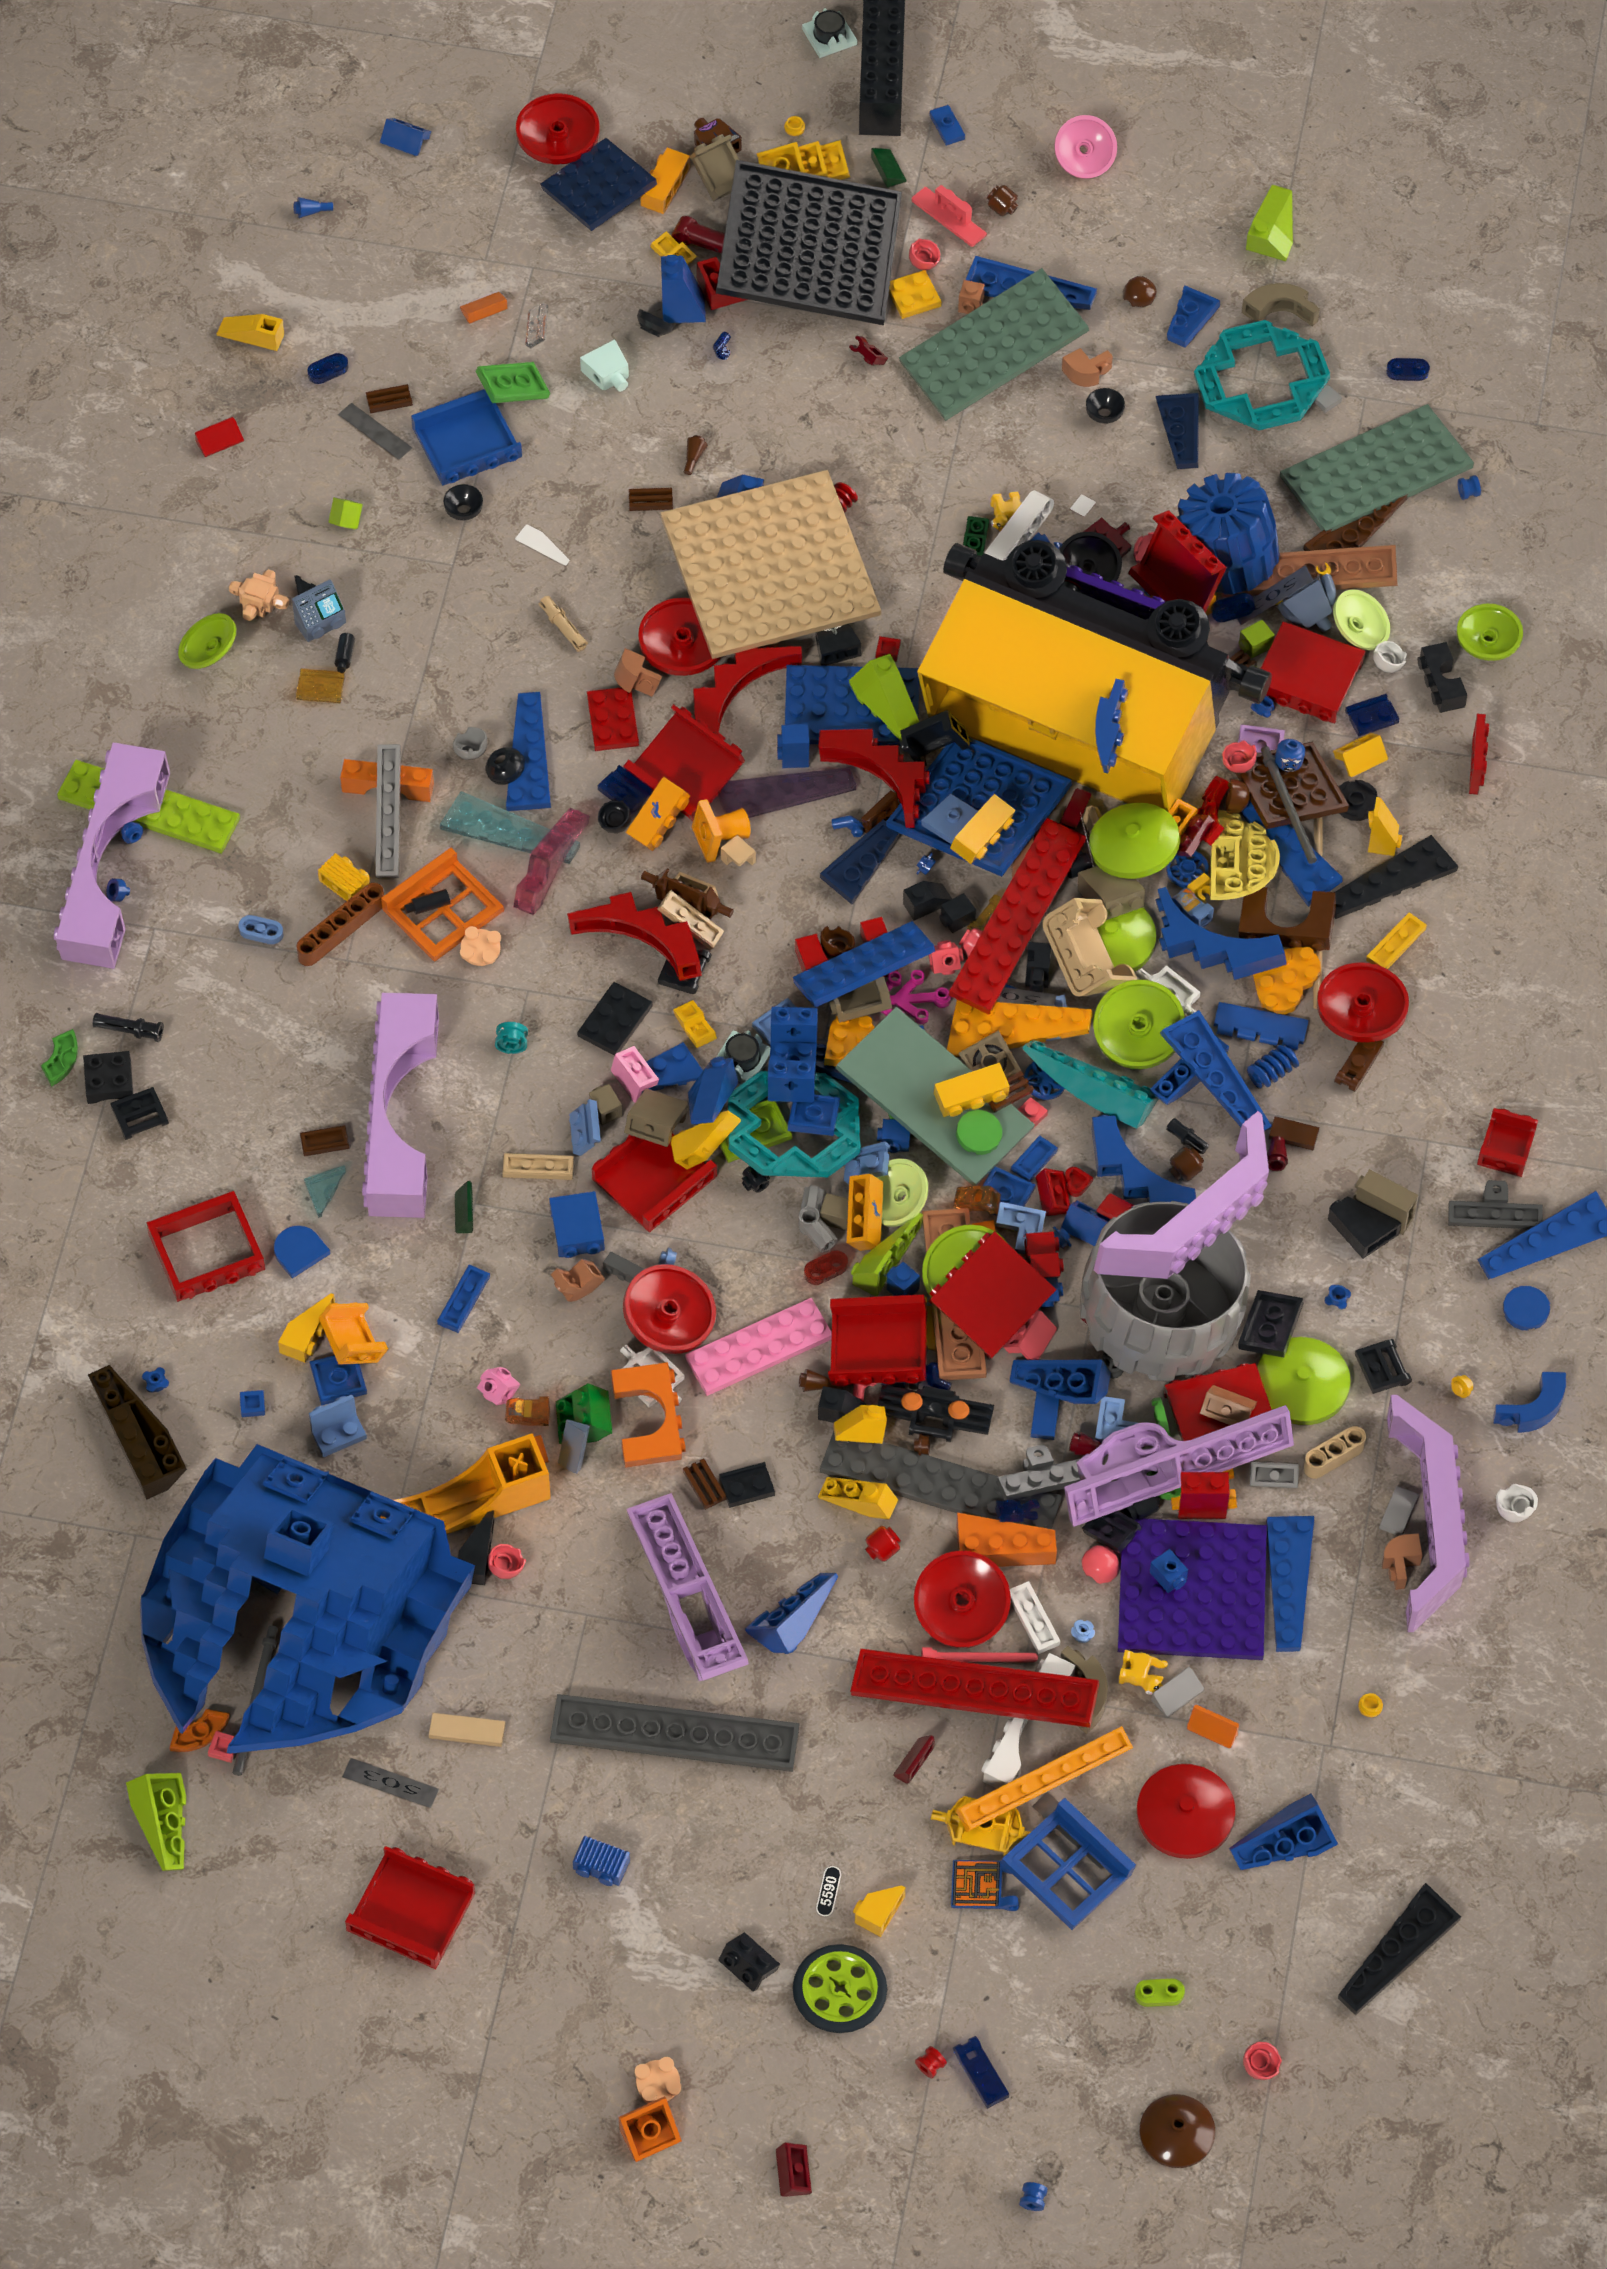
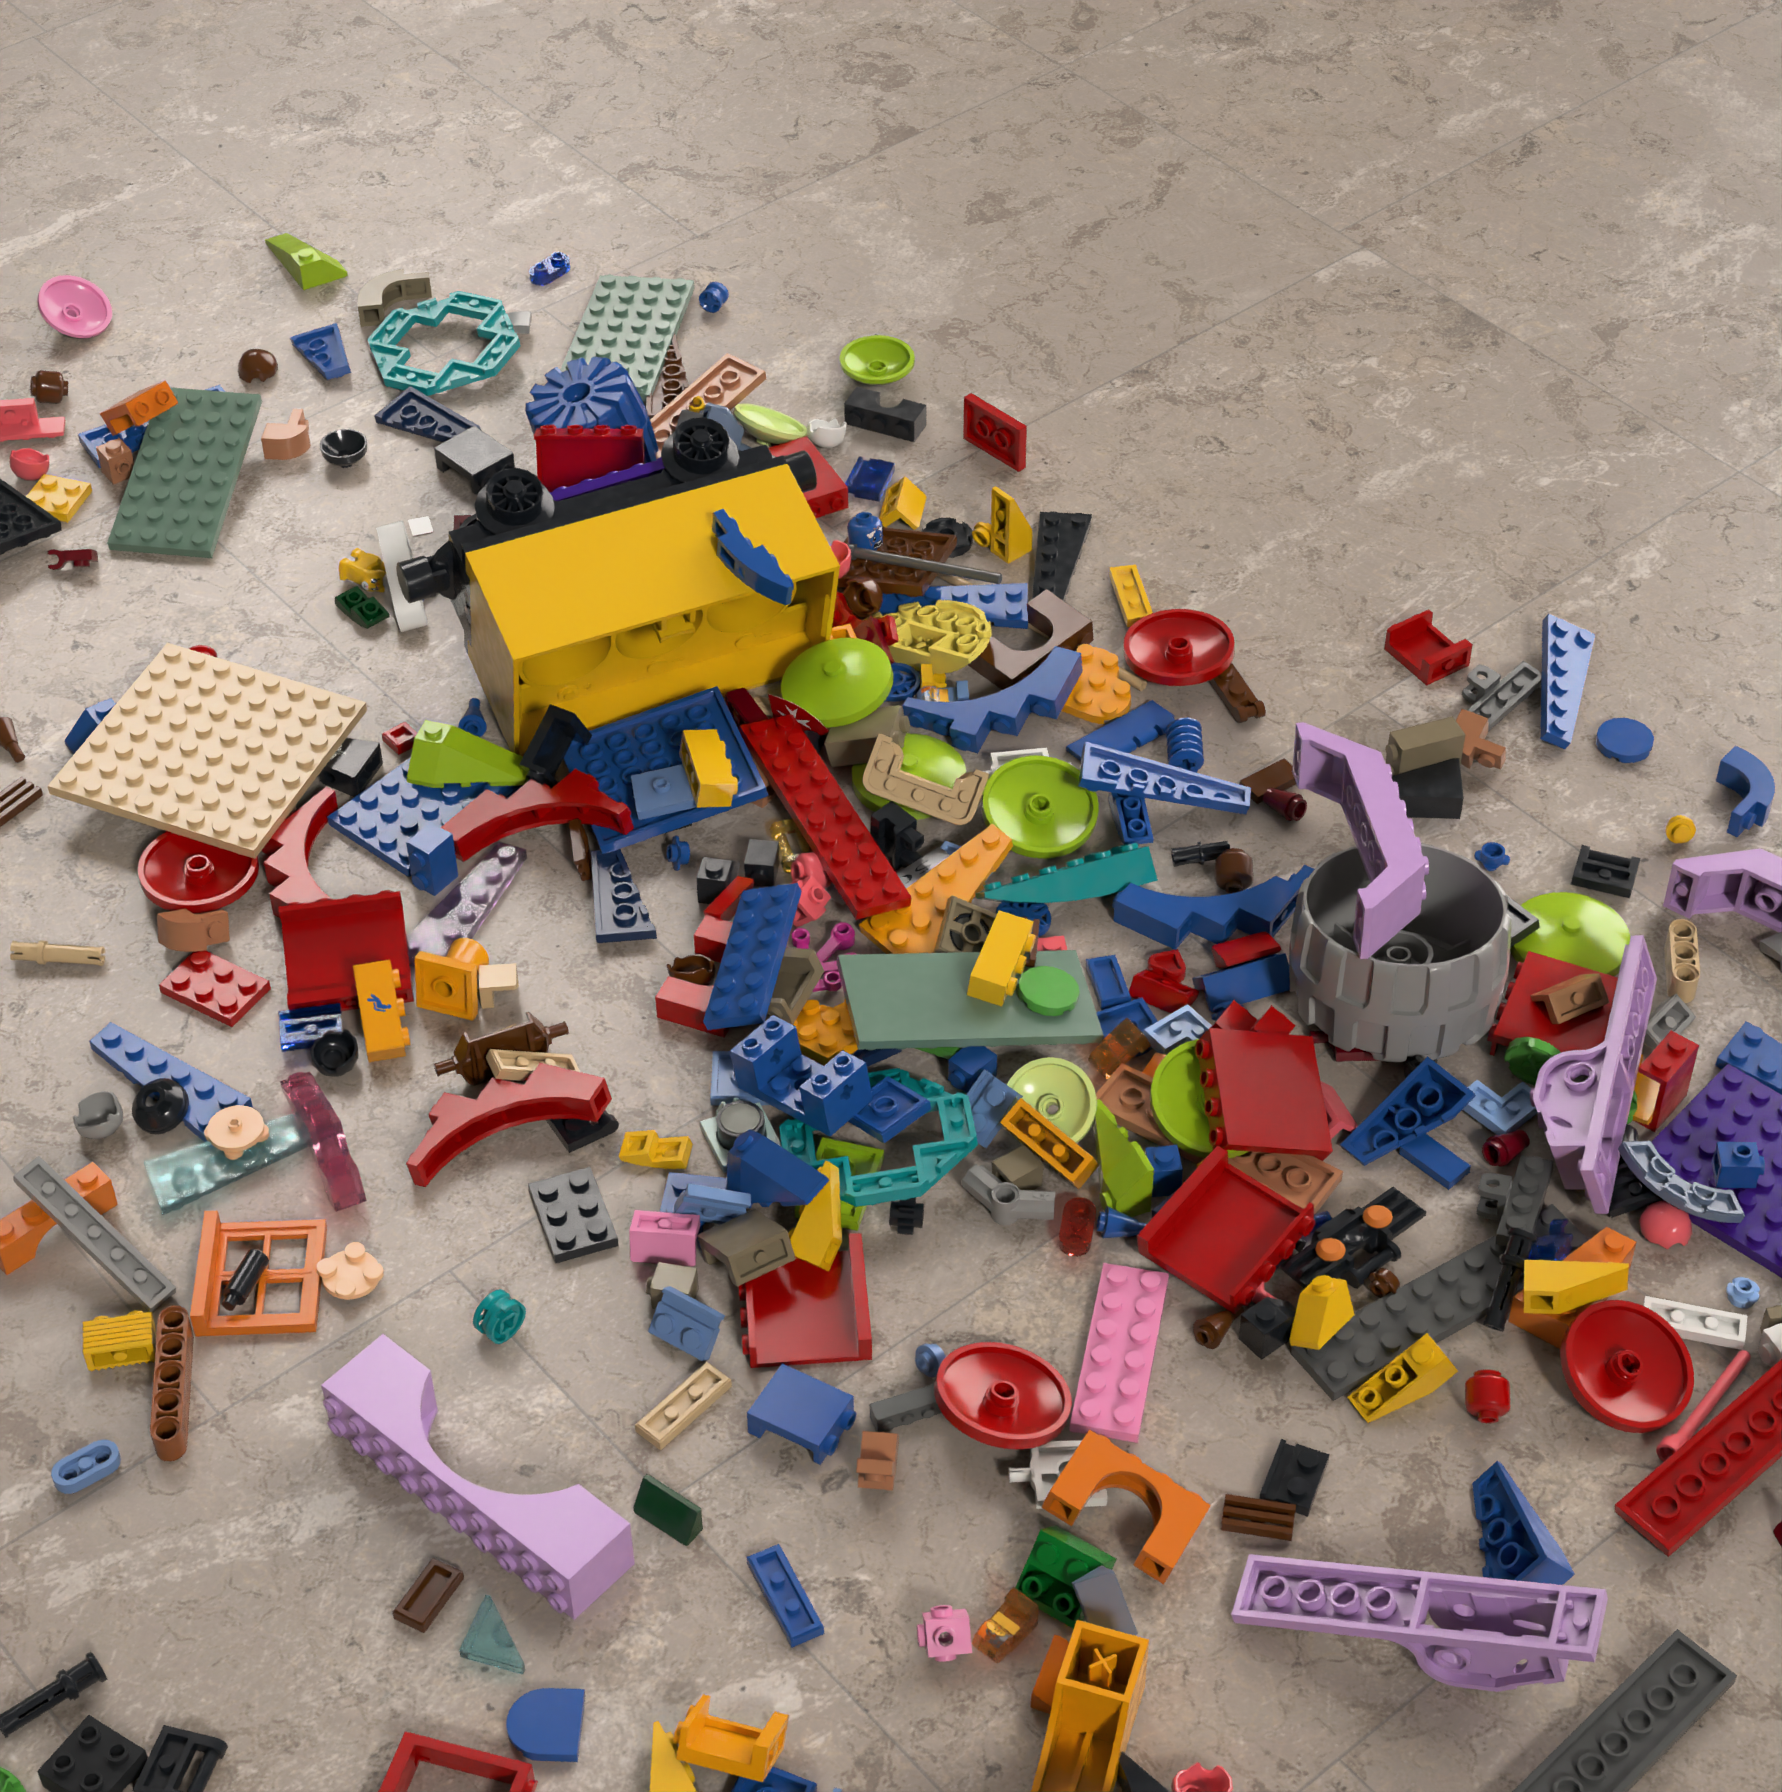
camera: 50 degrees left, 15 degrees down
(517, 816) = (236, 1130): none -> light nougat piece
(664, 1072) = (712, 1203): none -> medium blue plate
(844, 1285) = (1117, 1224): none -> blue cone
(851, 823) = (564, 879): blue arm -> none
(897, 919) = (726, 903): none -> red slope
(975, 1529) = (1566, 1285): none -> yellow slope
(981, 1498) = (1510, 1261): none -> black pin
(1013, 273) = (139, 407): none -> orange panel
(1117, 1551) = (1693, 1198): none -> sand blue tile
(1164, 484) = (474, 457): none -> panel
(1427, 1219) = (1475, 745): none -> nougat brick

